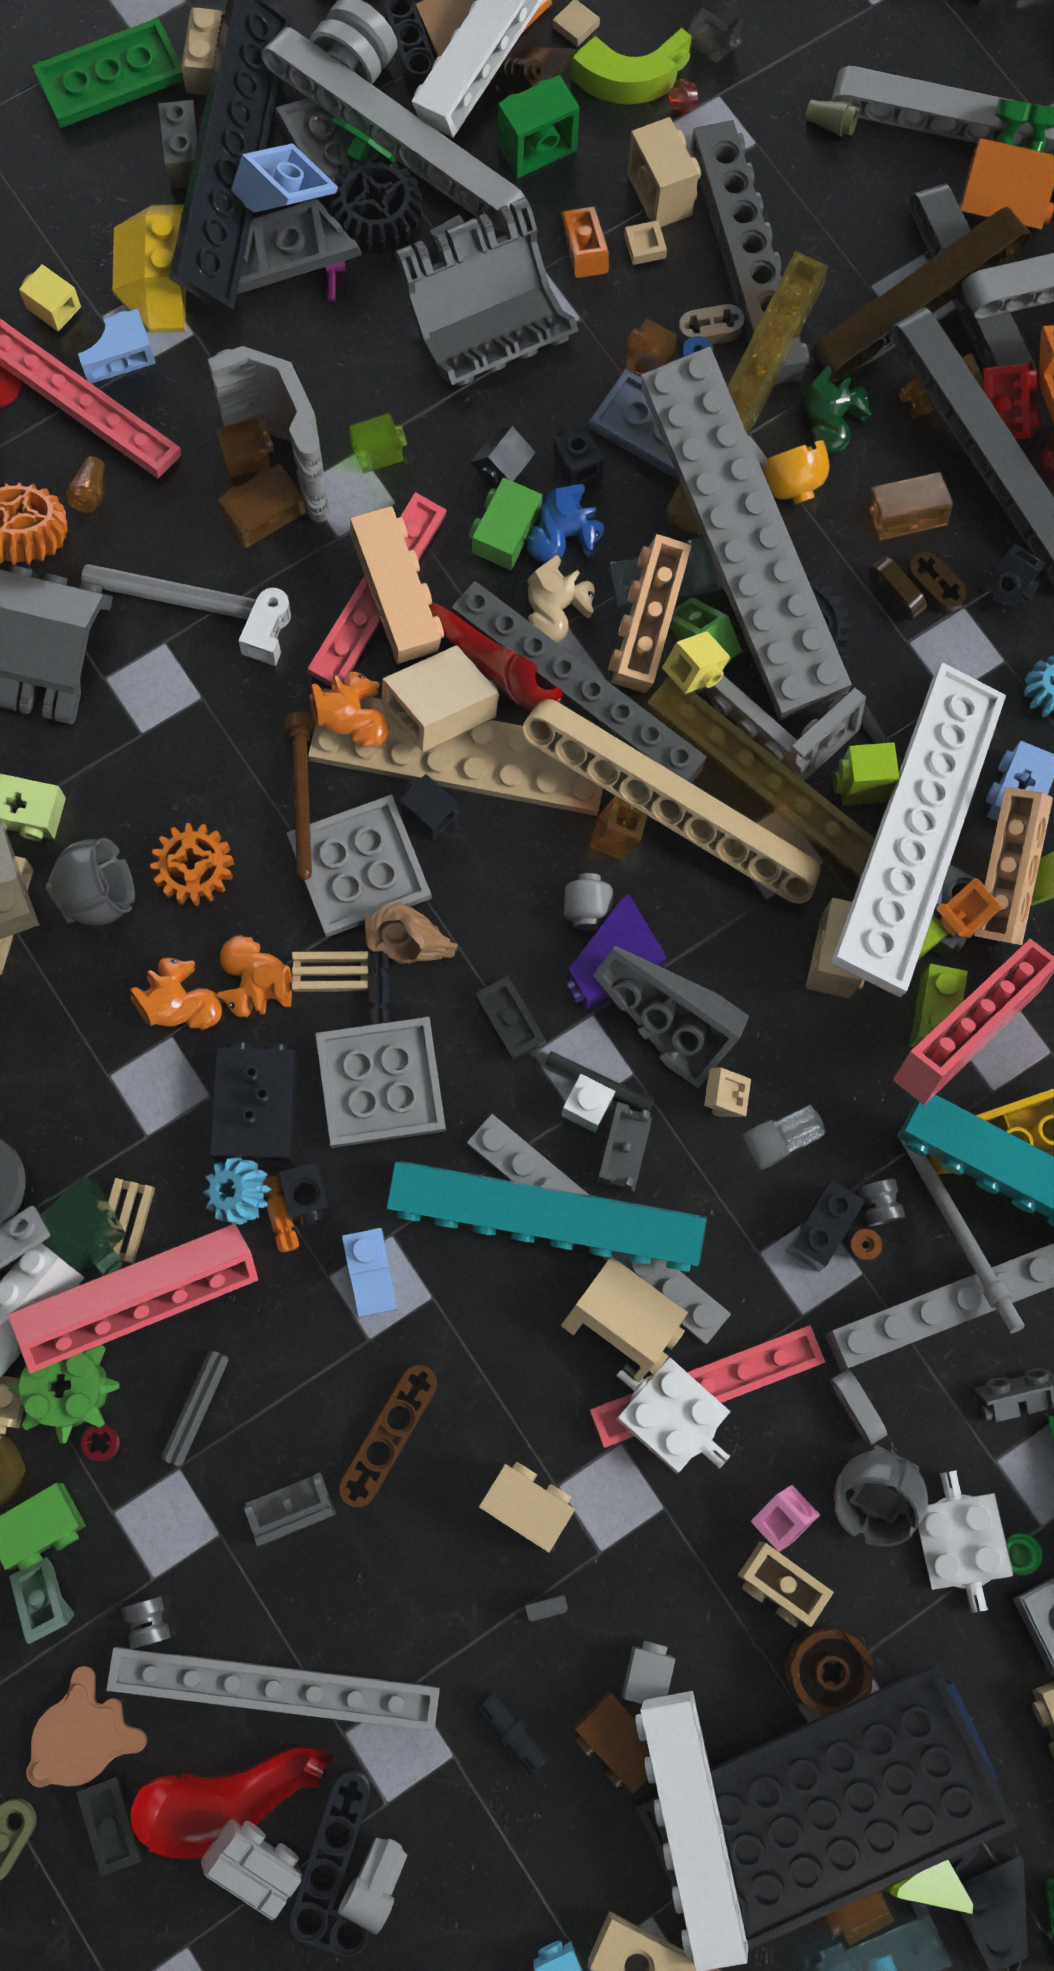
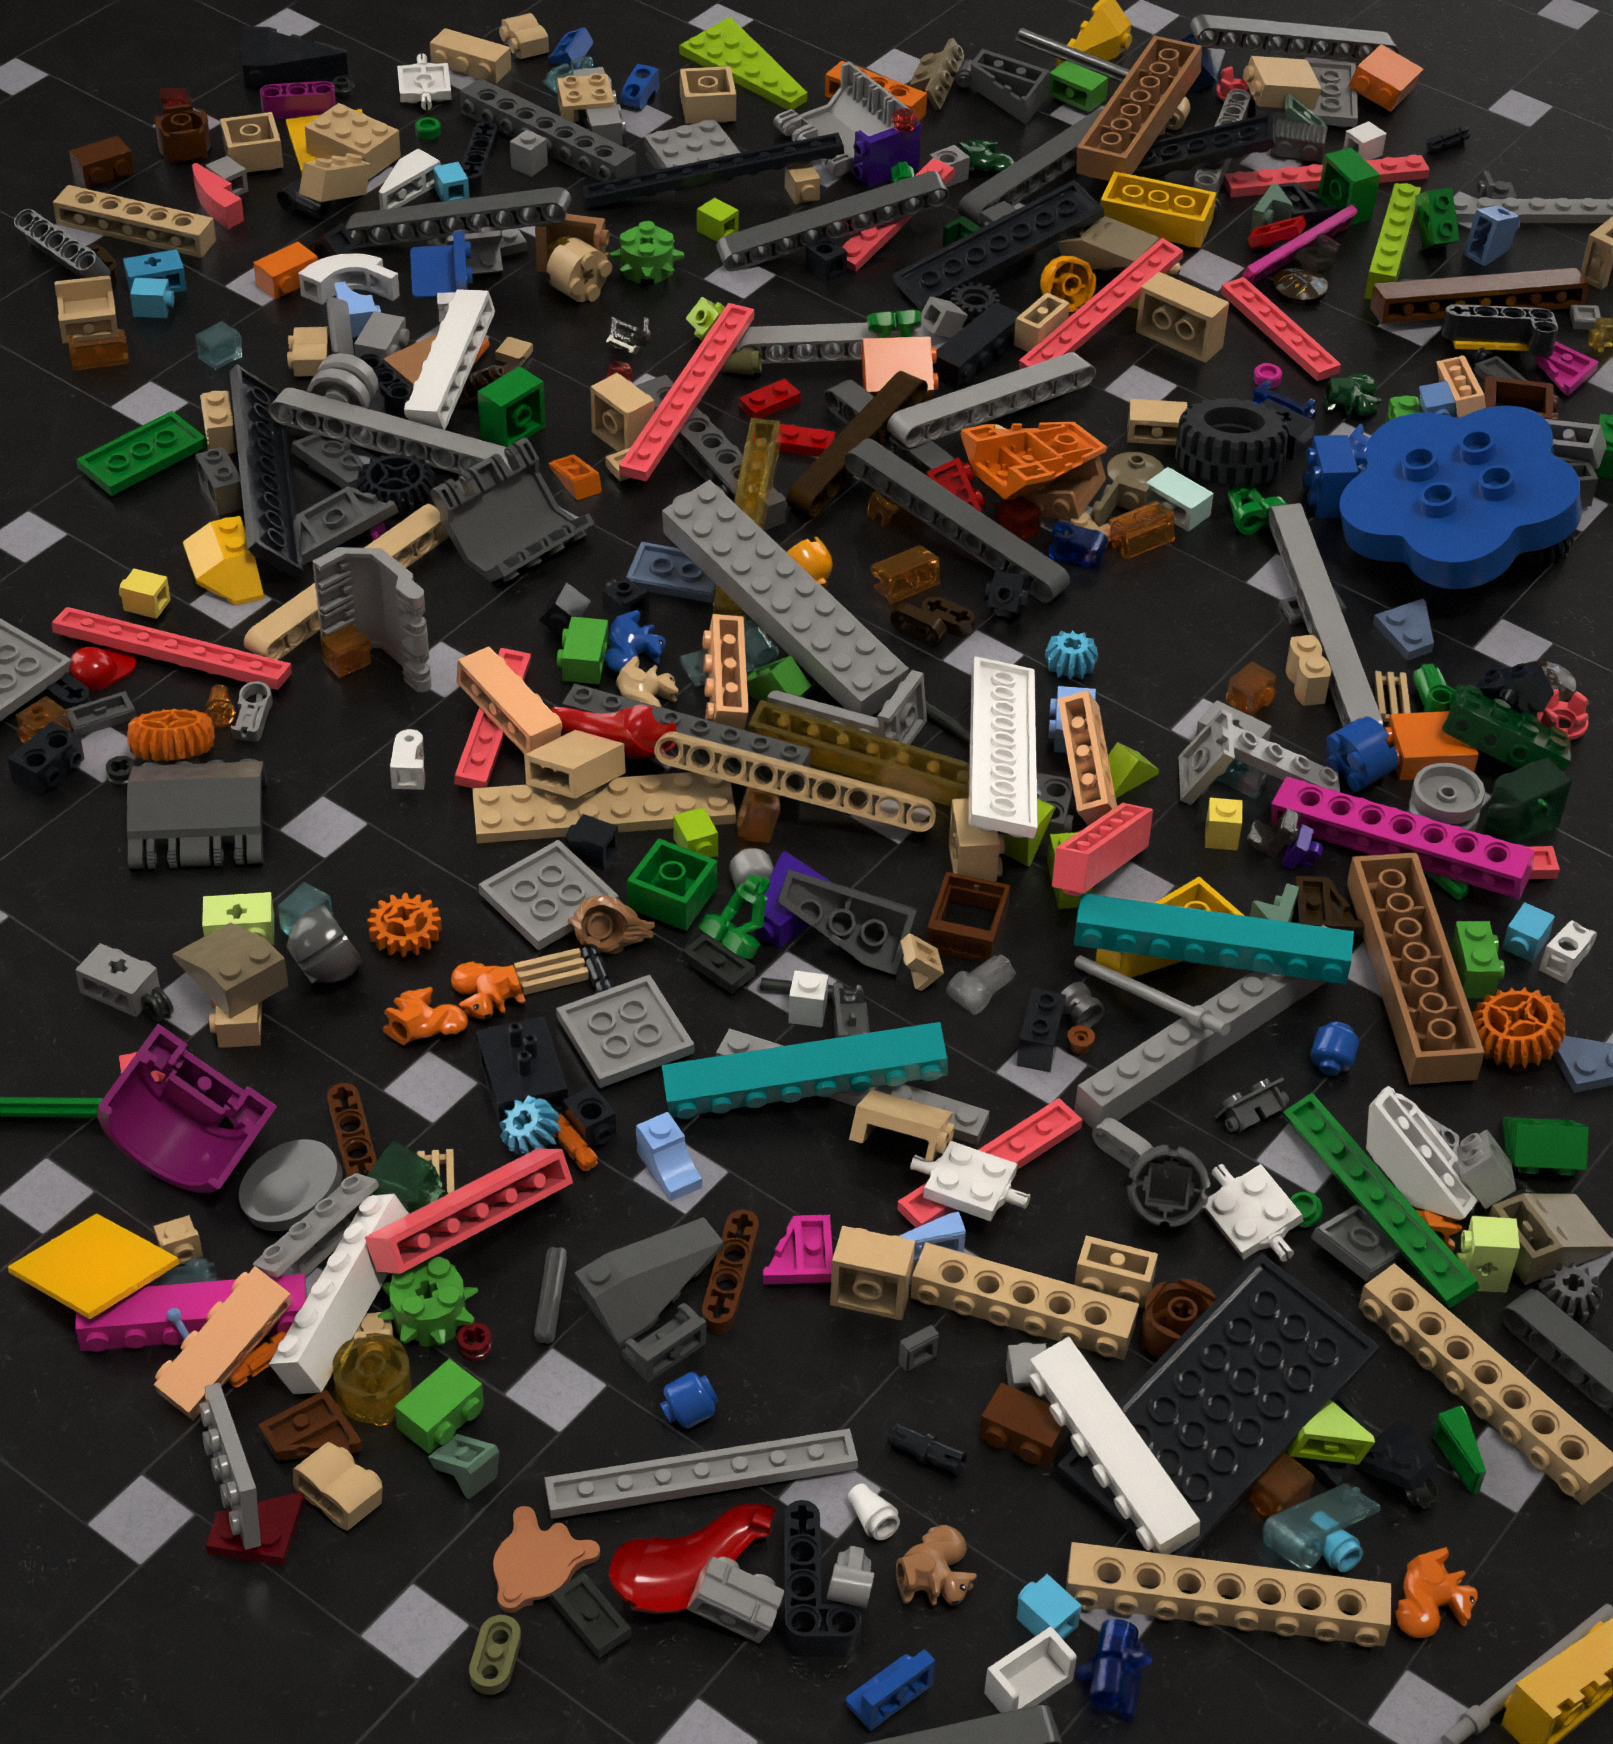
camera: 15 degrees left, 30 degrees down
(50, 1139) = (350, 1140): none -> reddish brown beam
(91, 814) = (299, 902): none -> clear light blue brick
(120, 348) = (217, 614): light blue arch -> none
(120, 510) = (252, 715): none -> light grey piece
(144, 1613) = (565, 1452): flat silver wheel -> none
(168, 591) = (322, 758): light grey axle -> none
(262, 505) = (374, 685): clear orange brick -> none
(279, 178) = (313, 480): light blue slope -> none
(284, 336) = (299, 617): none -> tan beam
(288, 1431) = (639, 1280): none -> dark grey wedge
(289, 1597) = (689, 1400): none -> blue head
(298, 729) = (462, 819): reddish brown piece -> none
(342, 711) = (501, 788): orange animal -> none
(362, 144) = (371, 443): green piece -> none
(377, 442) = (455, 627): clear neon green brick -> none
(430, 1794) = (875, 1514): none -> white cone
(459, 1880) = (928, 1568): none -> medium nougat animal
(470, 1440) = (803, 1253): none -> dark pink wing
(492, 900) = (672, 884): none -> green brick
(527, 974) = (738, 938): none -> green piece
(541, 836) = (696, 832): none -> lime brick
(618, 1470) = (943, 1232): none -> light blue slope
(627, 78) = (574, 371): lime arch -> none
(650, 347) = (651, 523): clear orange brick -> none
(696, 662) = (778, 685): light yellow brick -> none
(746, 160) = (686, 392): none -> coral plate
(766, 1640) = (1048, 1307): none -> tan brick
(782, 1071) = (964, 940): none -> reddish brown window
(785, 1518) = (1095, 1221): bright pink brick -> none
(816, 41) = (704, 316): none -> lime brick
(826, 406) = (819, 524): dark green animal -> none
(846, 181) = (769, 399): none -> red plate
(865, 259) = (804, 440): none -> red plate
(866, 774) = (946, 728): lime brick -> none
(968, 909) = (1065, 787): orange bracket -> none

